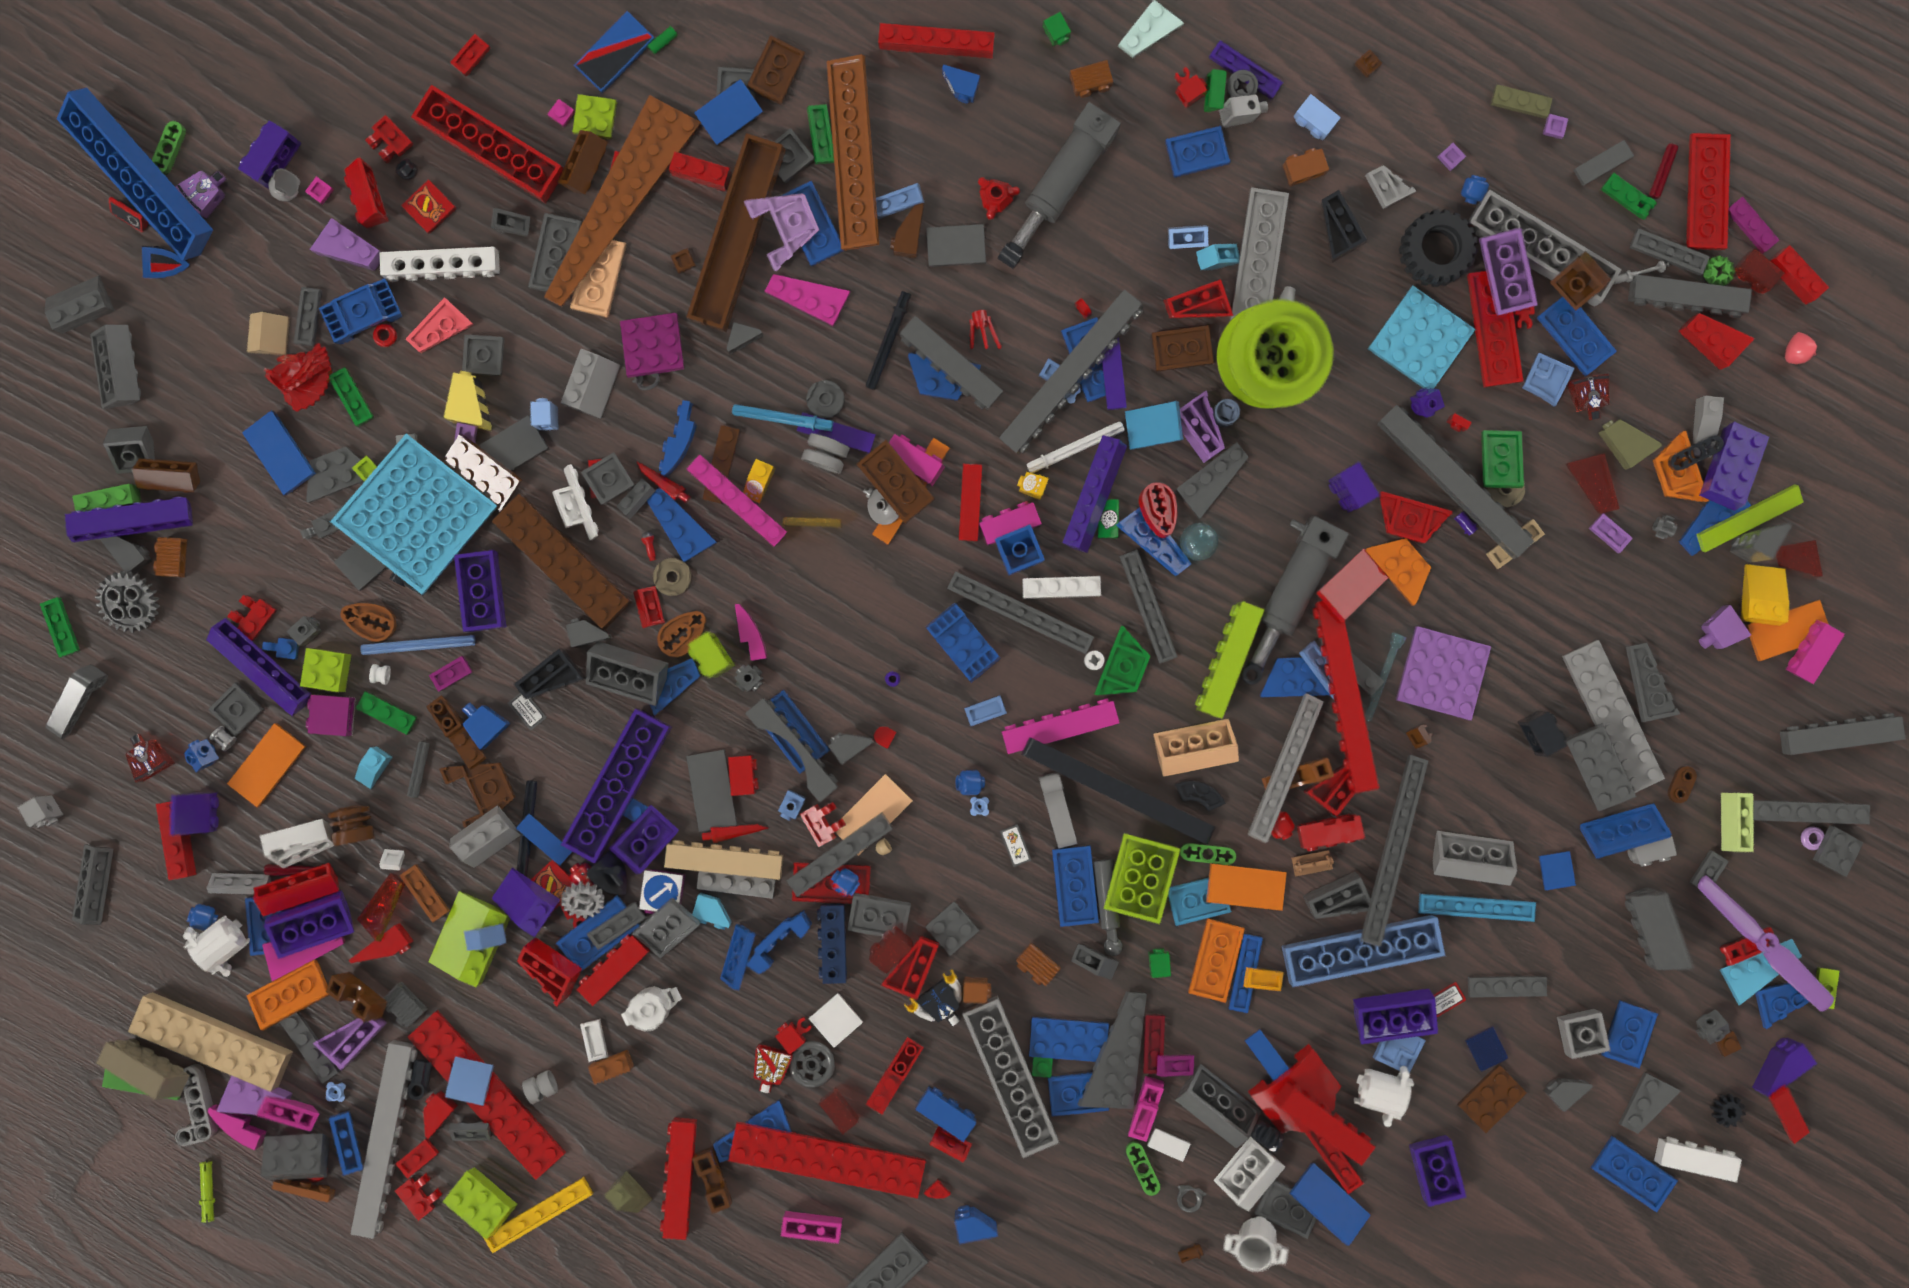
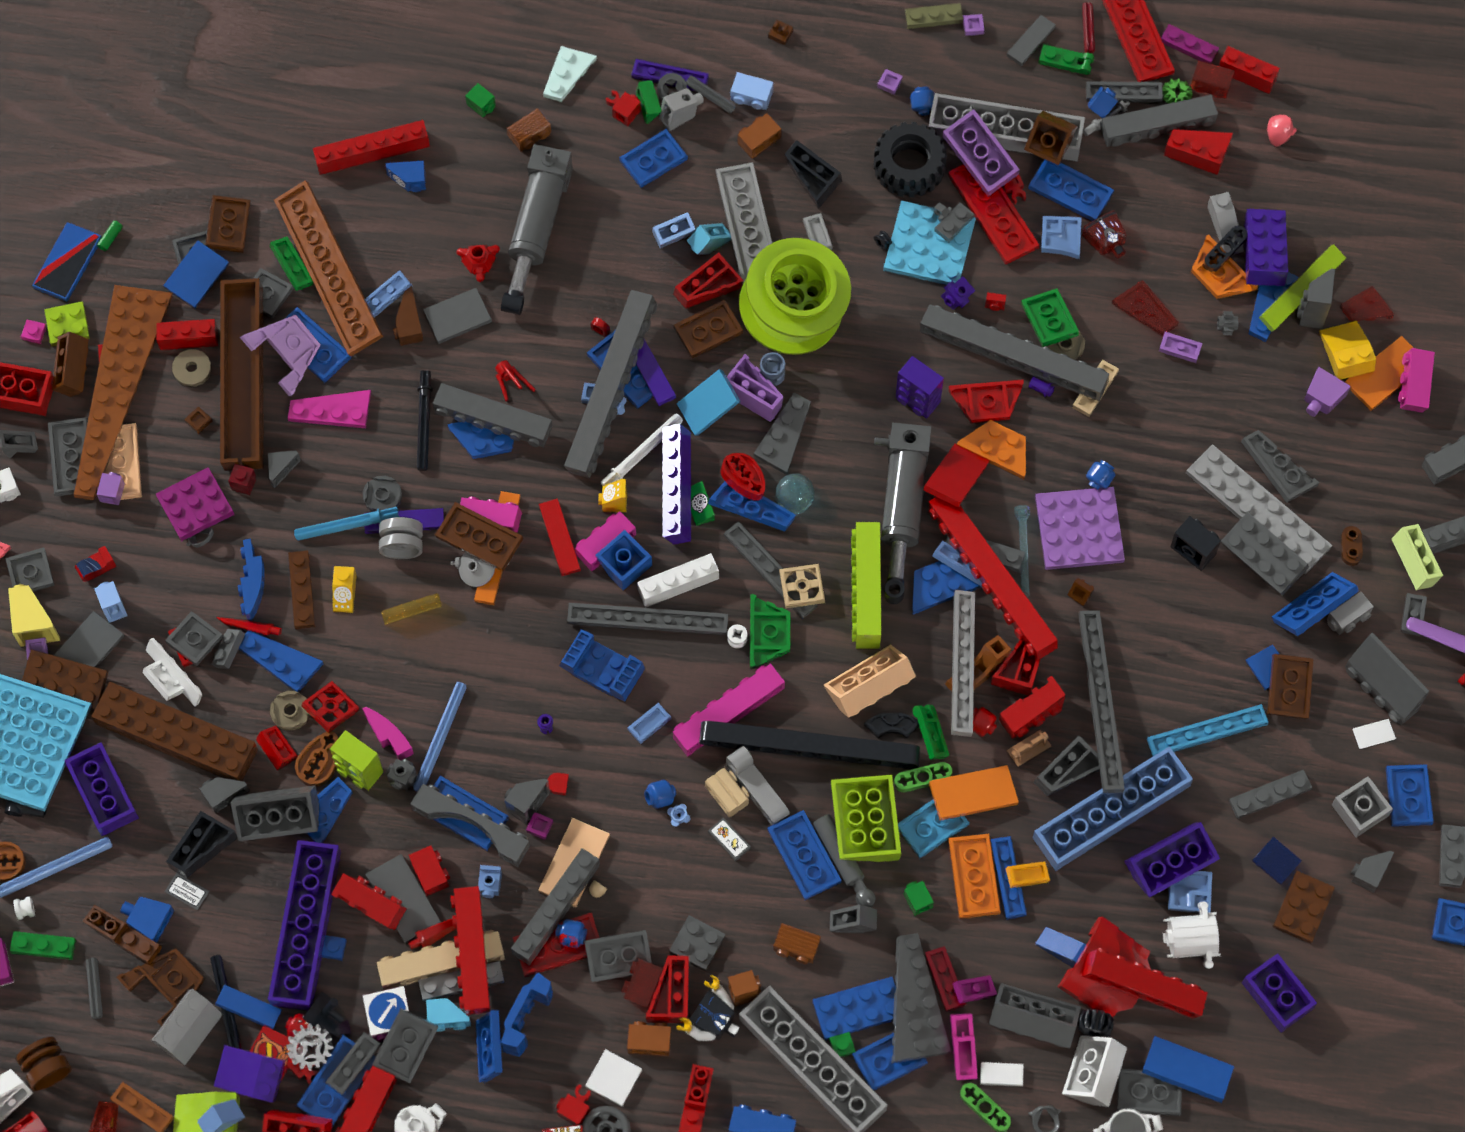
camera: 25 degrees left, 20 degrees down
(372, 766) = (45, 1001): medium azure slope -> none
(392, 859) = (96, 1086): white plate -> none
(450, 673) = (97, 881): magenta plate -> none
(544, 371) = (95, 565): none -> red leg
(580, 302) = (110, 488): none -> medium lavender brick
(590, 383) = (145, 559): light grey slope -> none
(643, 839) = (350, 969): dark purple slope -> none
(648, 538) = (253, 683): red piece -> none
(681, 786) = (370, 900): none -> red wedge
(688, 196) = (188, 358): none -> dark tan tile
(688, 580) = (330, 688): none -> red piece
(703, 337) = (242, 479): none -> dark red brick
(736, 500) = (329, 612): dark pink brick -> none
(751, 870) = (471, 950): none -> red brick
(795, 653) = (440, 735): none -> medium blue axle
(817, 824) = (523, 891): plate -> none
(833, 943) = (582, 1001): dark blue brick -> none
(853, 770) = (539, 825): none -> magenta plate
(878, 1000) = (649, 1039): none -> dark orange brick
(1029, 803) = (727, 792): none -> tan brick
(1188, 624) = (787, 587): none -> tan piece
(1232, 816) = (931, 731): none -> green plate
(1276, 106) = (710, 94): none -> dark grey axle
(1321, 288) = (817, 230): none -> light grey tile
(1336, 1162) = (1173, 1025): red tile -> none
(1379, 319) = (882, 239): none -> black bush
(1388, 186) = (842, 126): light grey wing -> none
(1448, 998) = (1219, 828): sticker -> none
(1451, 325) = (951, 220): none -> dark grey hinge
(1474, 858) = (1183, 684): light grey slope -> none
(1483, 631) = (1100, 475): none -> blue head
(1568, 898) = (1290, 686): none -> reddish brown plate
(1623, 965) = (1374, 733): none -> white sticker
(1627, 442) = (1160, 263): olive slope -> none
(1645, 257) = (1103, 101): none -> blue brick

